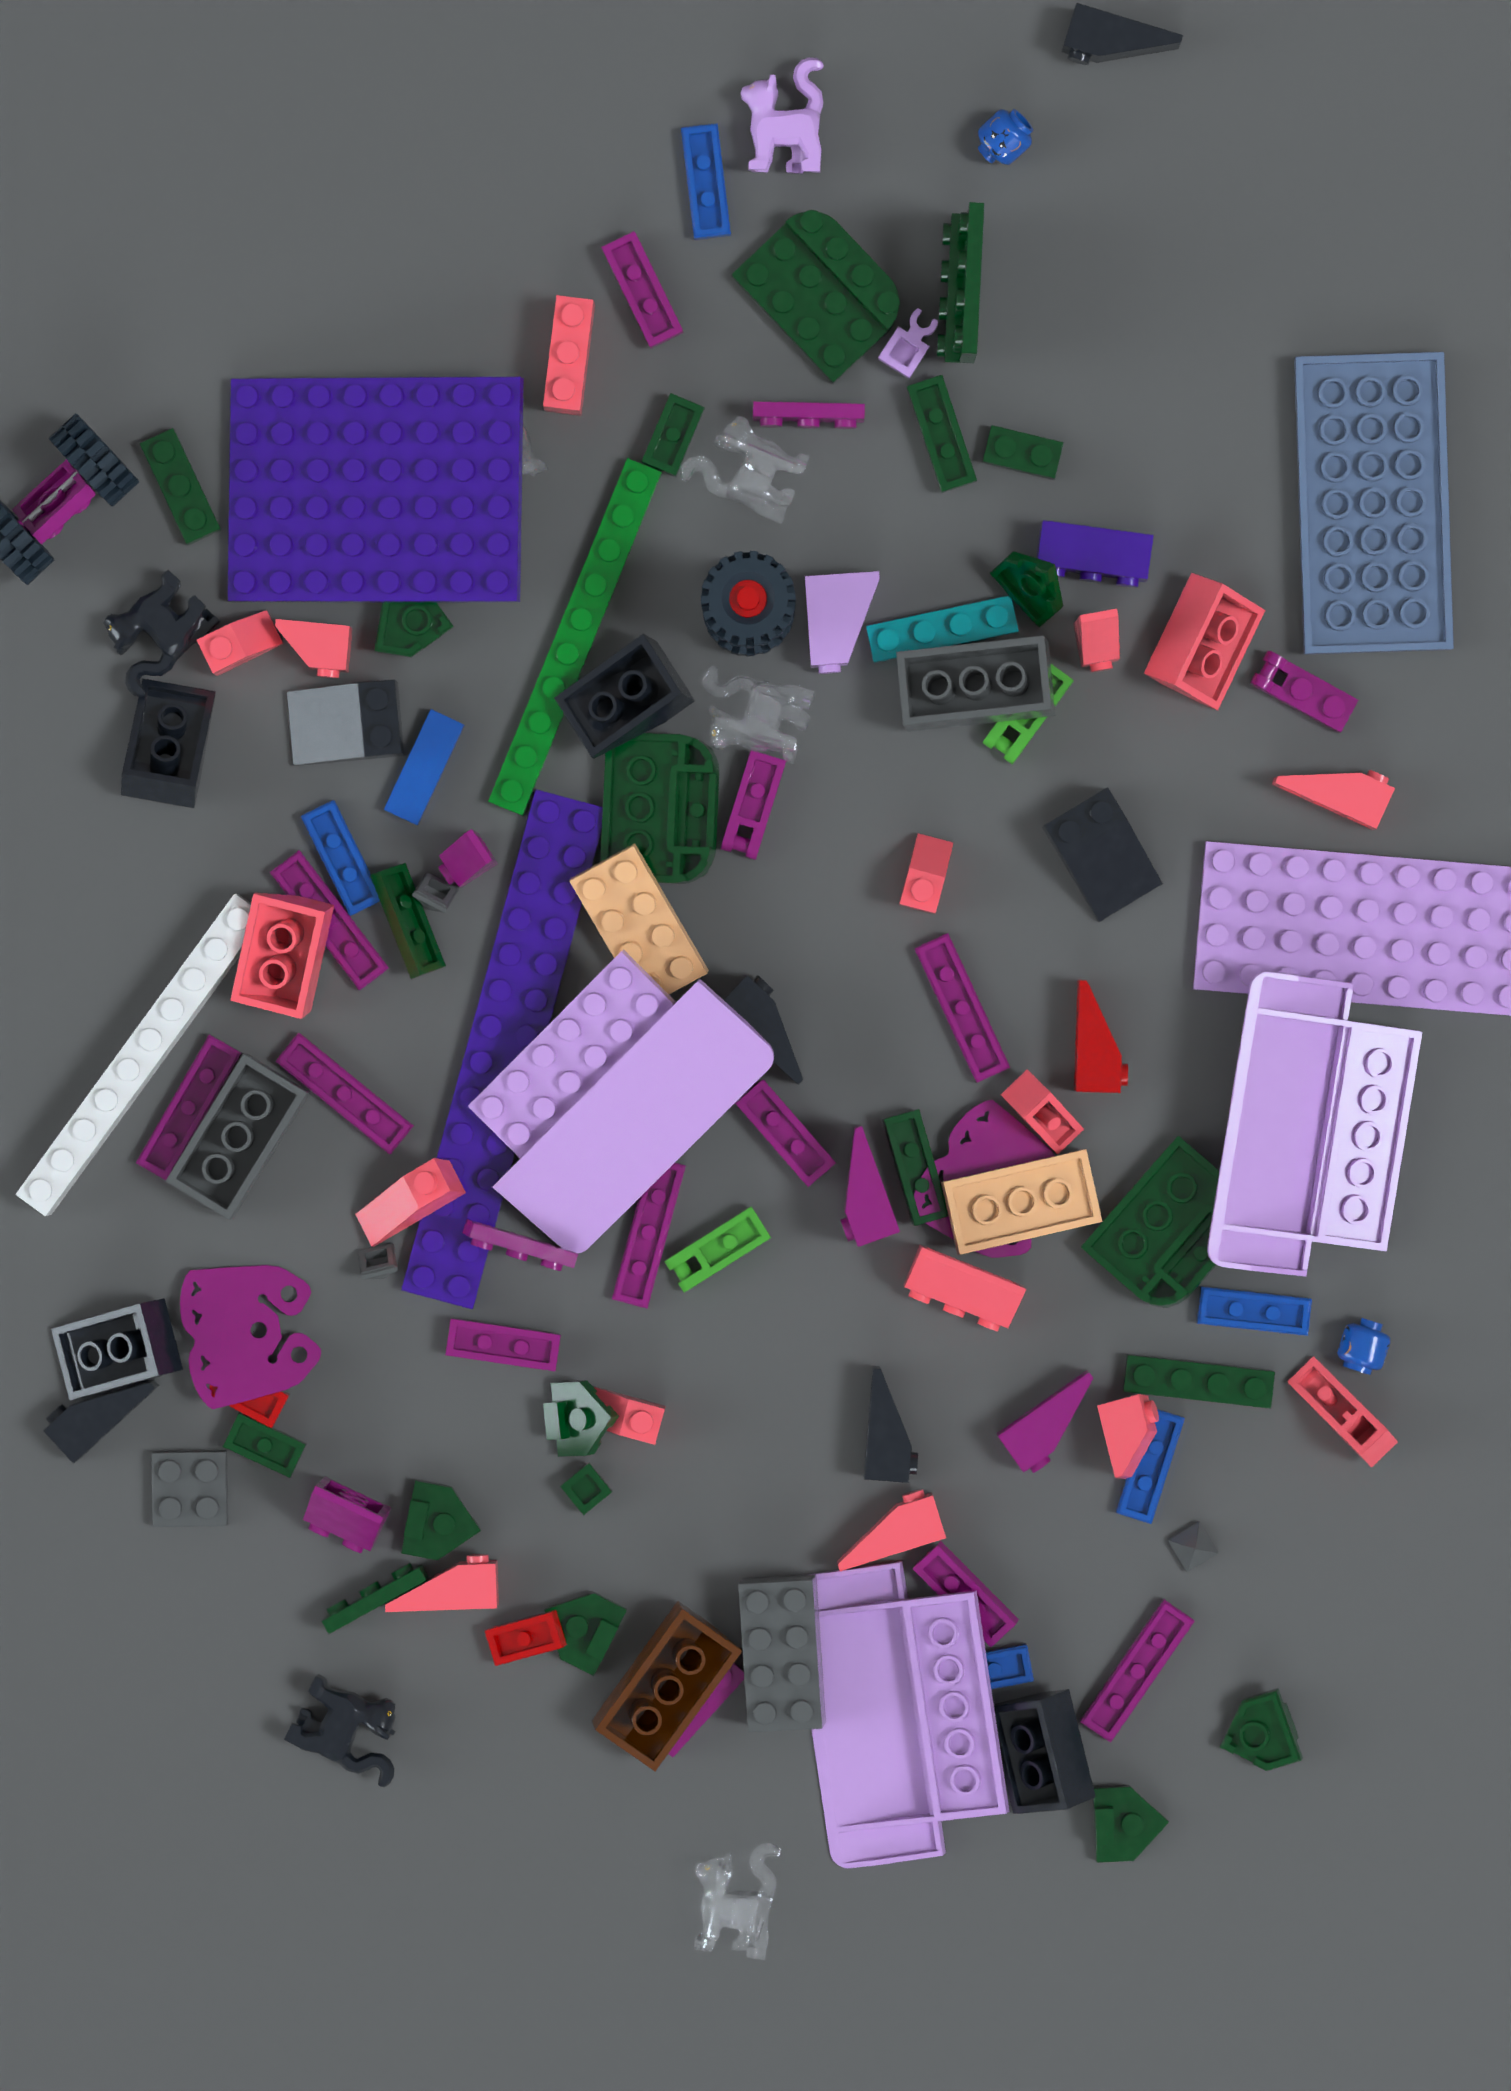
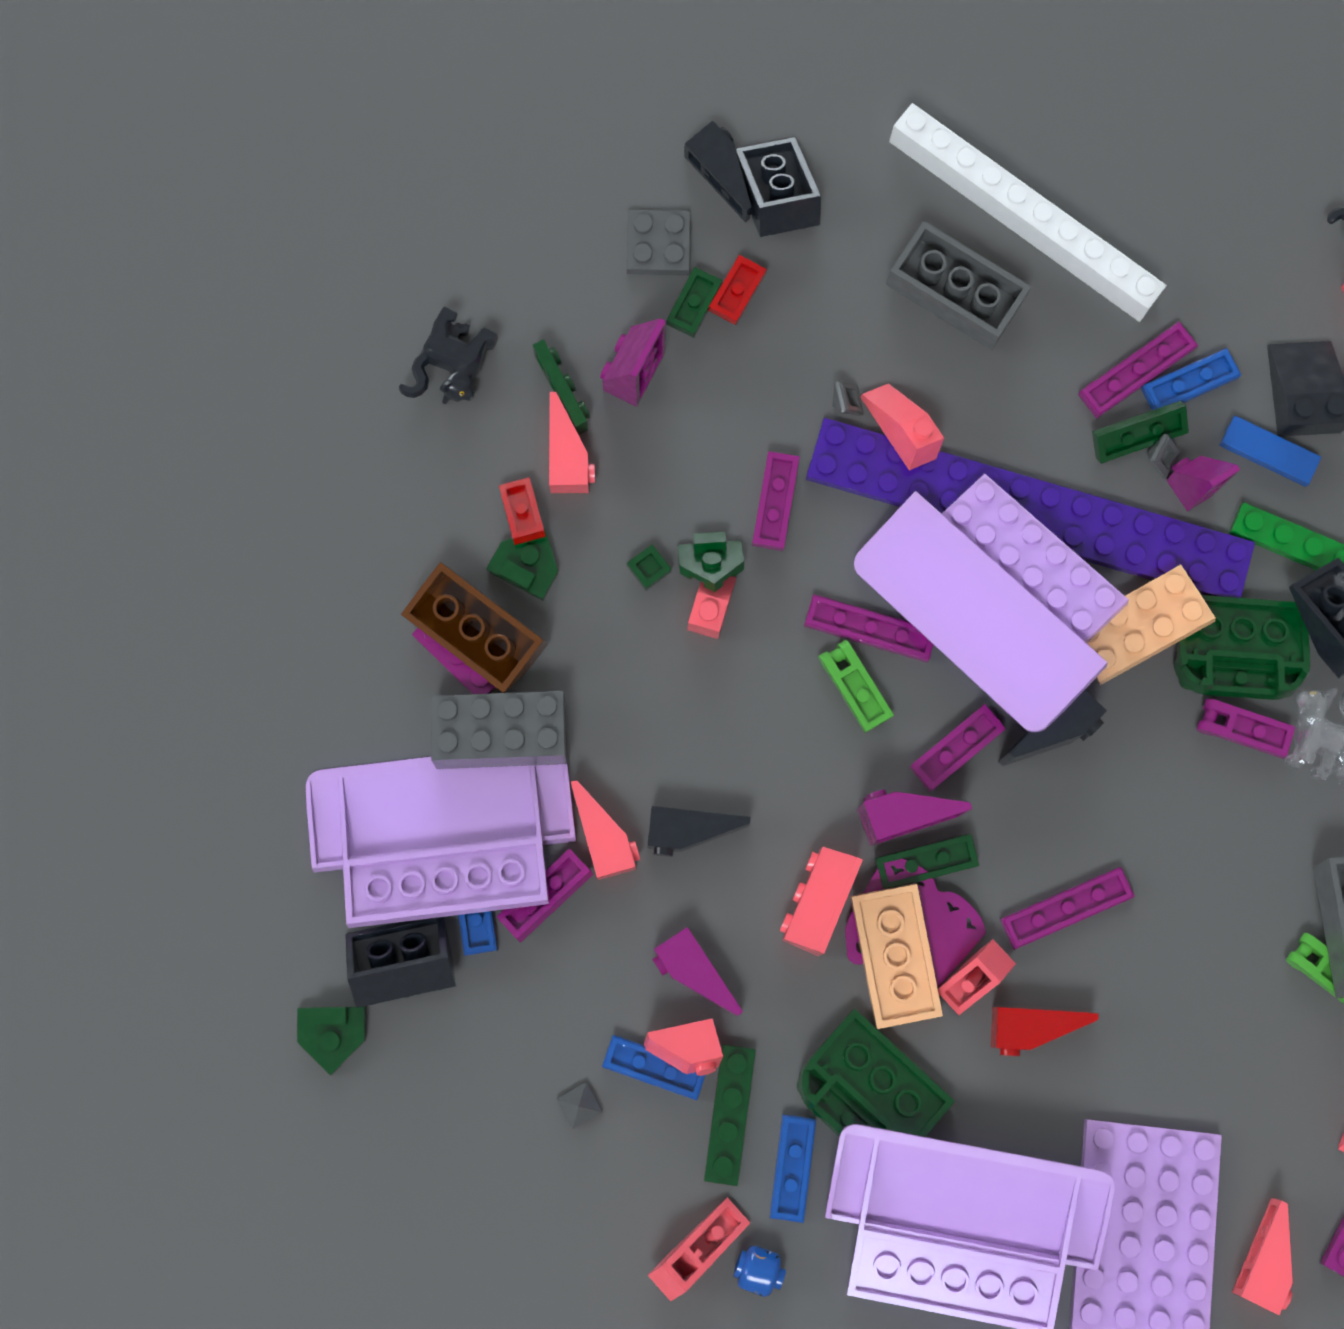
camera: 85 degrees right, 10 degrees down
(168, 743) = (1285, 240): black slope -> none
(189, 1106) = (984, 246): magenta tile -> none
(224, 1337) = (784, 272): magenta piece -> none
(282, 953) = (1115, 324): coral slope -> none
(344, 1093) = (990, 378): magenta tile -> none
(436, 1521) = (624, 441): dark green plate -> none
(519, 1245) = (862, 513): magenta plate -> none
(735, 1908) = (276, 682): clear animal -> none
(926, 873) = (1185, 877): coral slope -> none
(1102, 854) = (1209, 1038): black slope -> none
(1137, 1670) = (469, 1050): magenta tile -> none
(1264, 1732) = (407, 1166): dark green plate -> none

